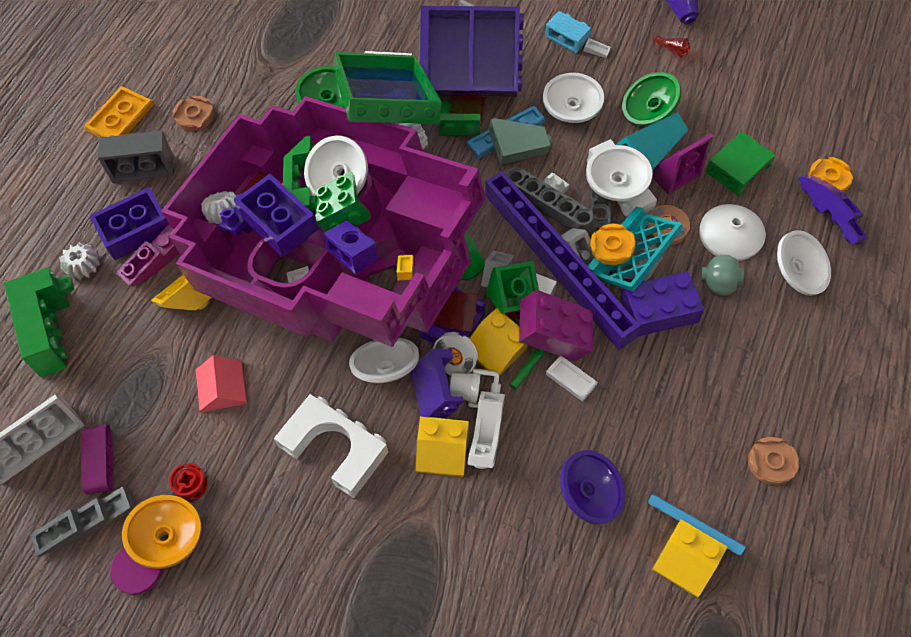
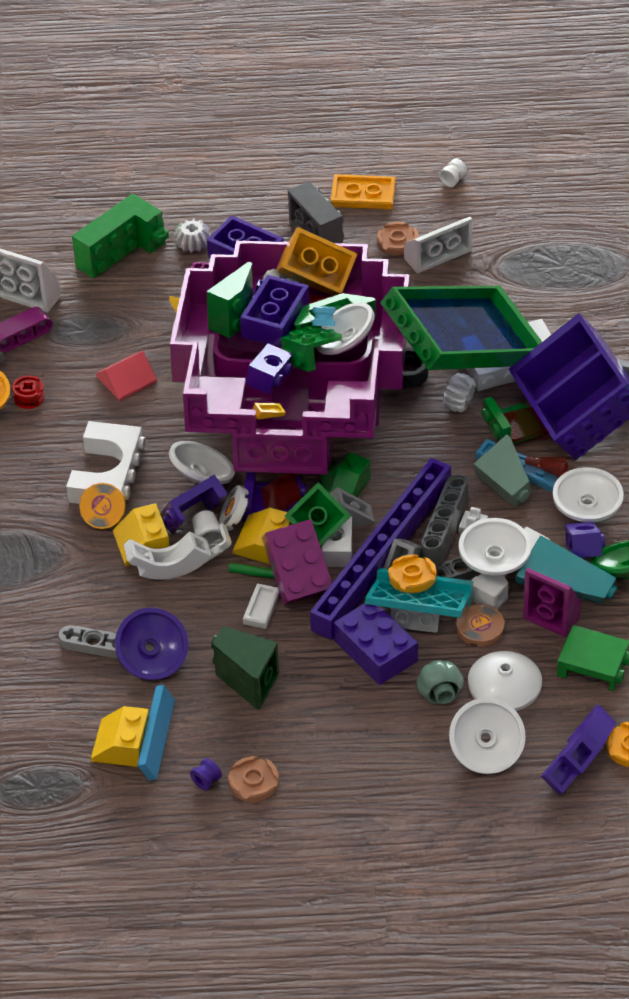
camera: 65 degrees right, 15 degrees down
(149, 46) = (453, 172): none -> white wheel
(227, 84) = (439, 245): none -> white slope
(227, 163) = (316, 262): none -> light orange slope
(242, 245) = (229, 300): none -> green slope
(315, 177) = (323, 316): none -> medium azure wheel
(390, 466) = (102, 505): none -> light orange tile
(529, 107) = (553, 465): none -> clear red cone
(535, 550) = (103, 648): none -> light grey beam
(622, 118) = (584, 539): none -> dark purple brick
(656, 414) = (246, 663): none -> dark green slope
(761, 498) = (205, 774): none -> dark purple wheel

